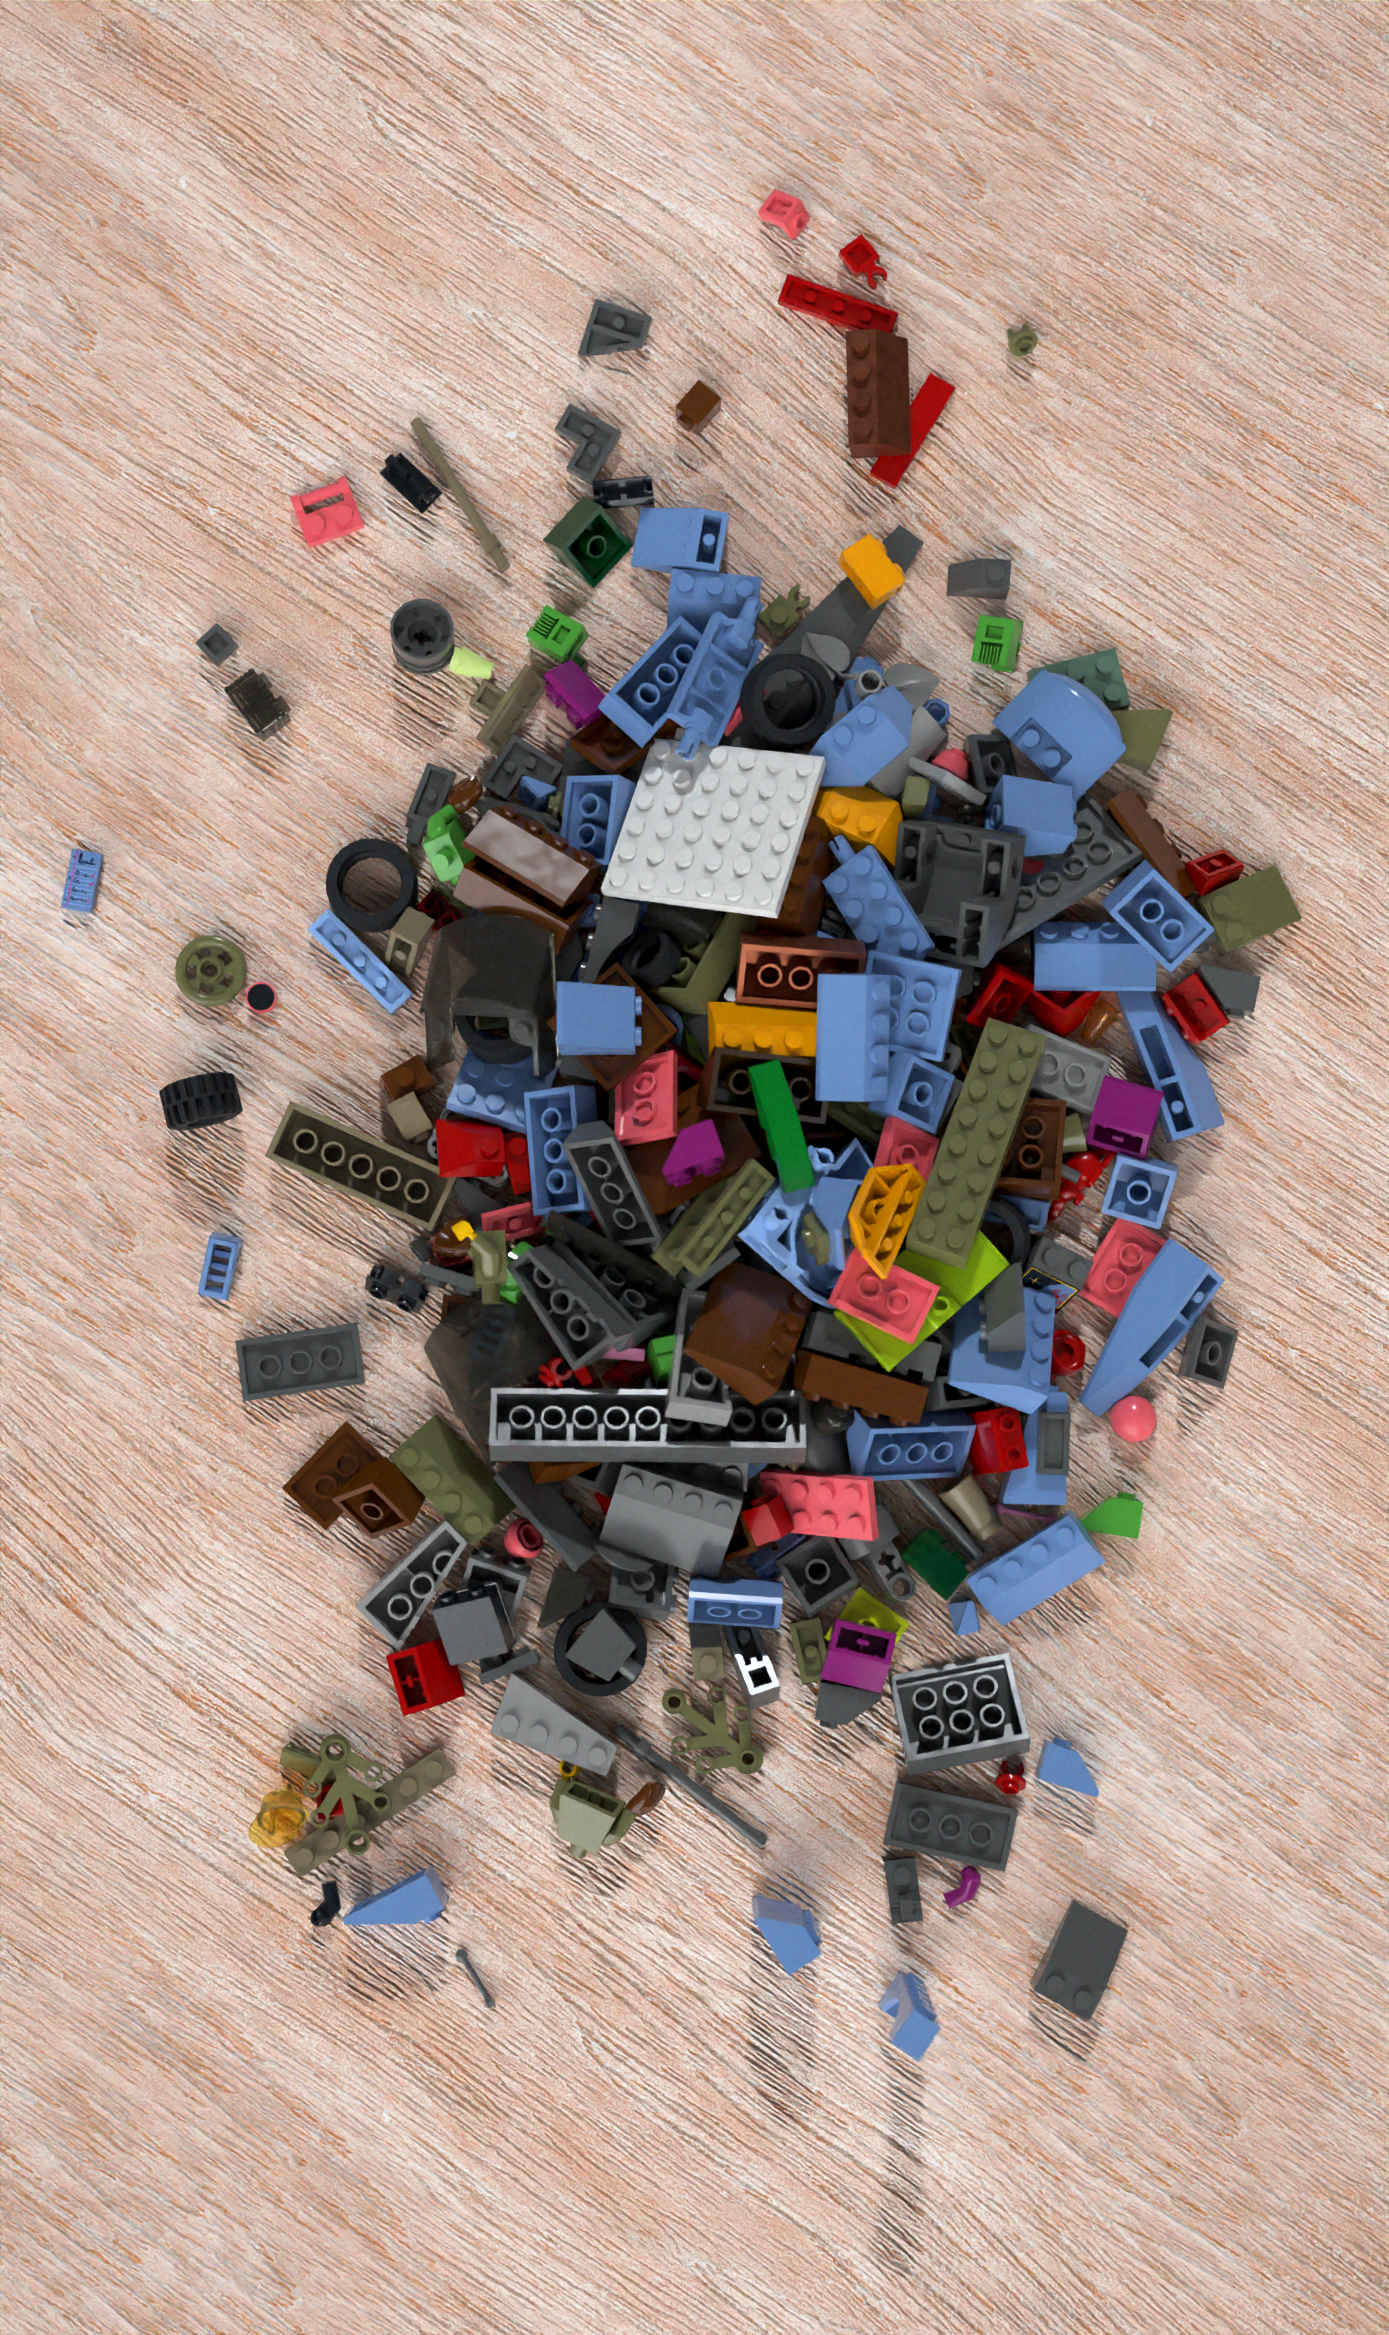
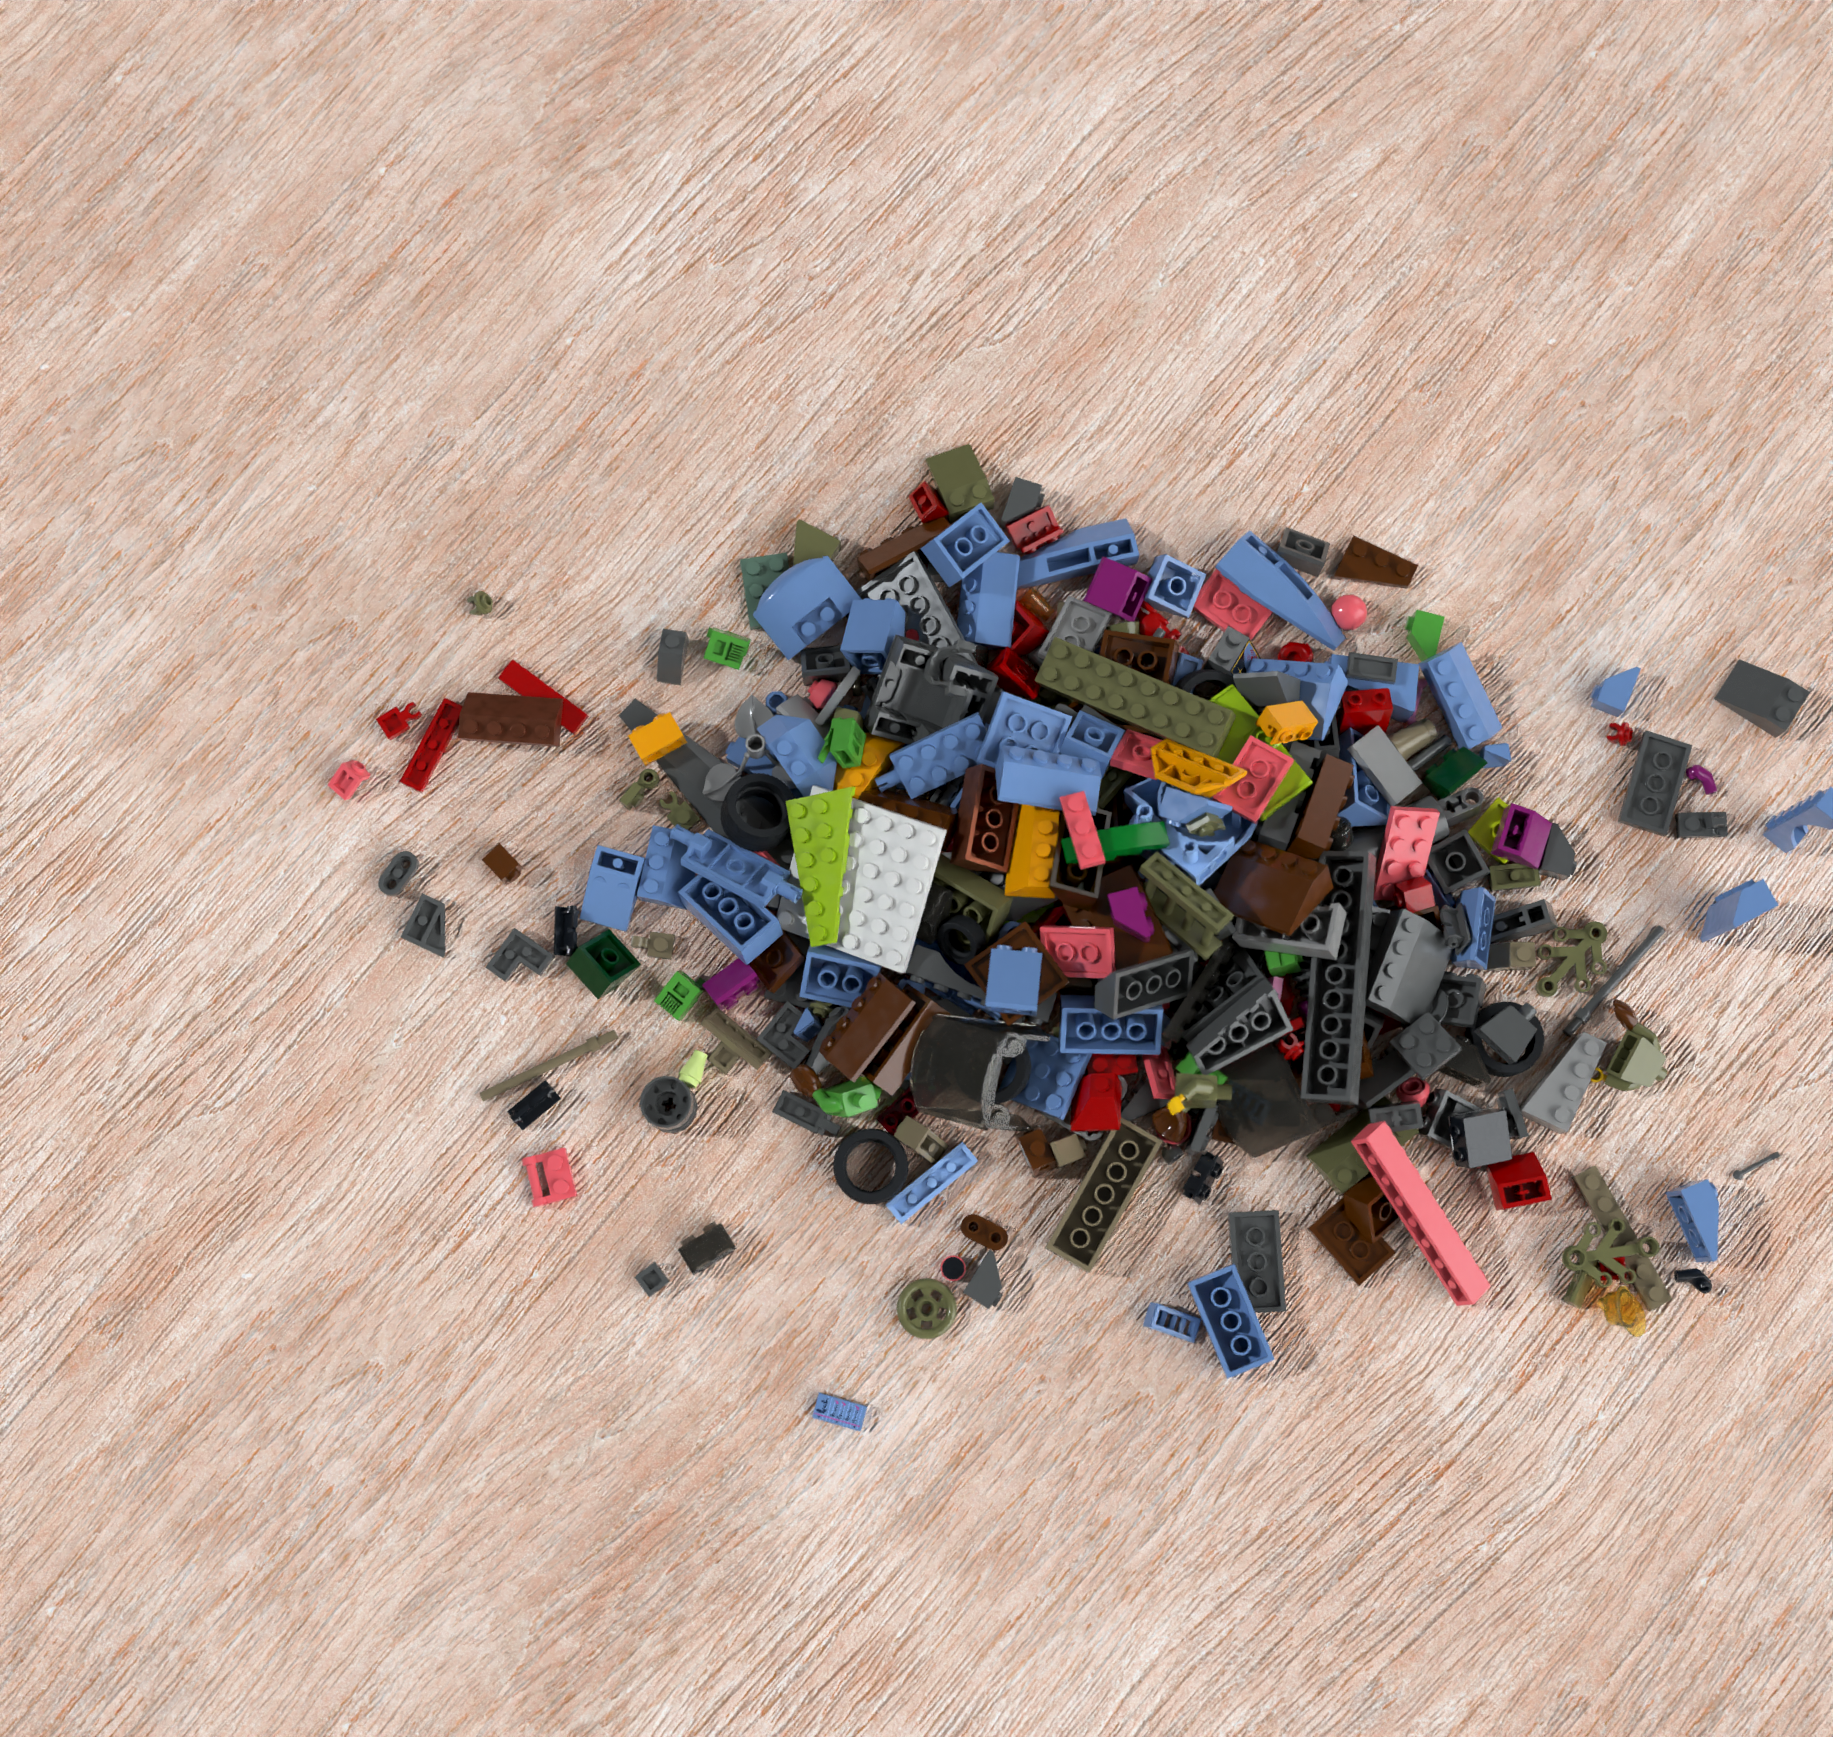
camera: 85 degrees left, 5 degrees down
(200, 1101) = (1039, 1322): black tyre -> none
(223, 1330) = (1230, 1321): none -> medium blue slope
(246, 1037) = (985, 1283): none -> dark grey slope
(307, 1030) = (984, 1232): none -> reddish brown plate
(371, 1553) = (1420, 1213): none -> coral brick
(408, 1587) = (1454, 1192): light grey wedge -> none
(486, 1513) = (1398, 1115): none -> dark grey hinge
(575, 1543) = (1425, 1046): none -> dark grey plate
(618, 605) = (658, 945): none -> dark tan plate
(676, 286) = (397, 873): none -> dark grey plate
(720, 1575) = (1455, 928): none -> dark grey hinge
(740, 776) = (821, 849): none -> lime wing
(790, 1081) = (1082, 830): none -> coral plate
(801, 554) = (634, 794): none -> olive plate
(882, 790) = (844, 742): none -> bright green piece
(929, 1471) = (1384, 766): none -> light grey tile
(959, 1714) = (1569, 767): dark grey slope -> none
(963, 1334) = (1287, 722): none -> light orange hinge
(981, 885) = (932, 667): none -> dark grey helmet
(1200, 1447) = (1373, 564): none -> reddish brown wing

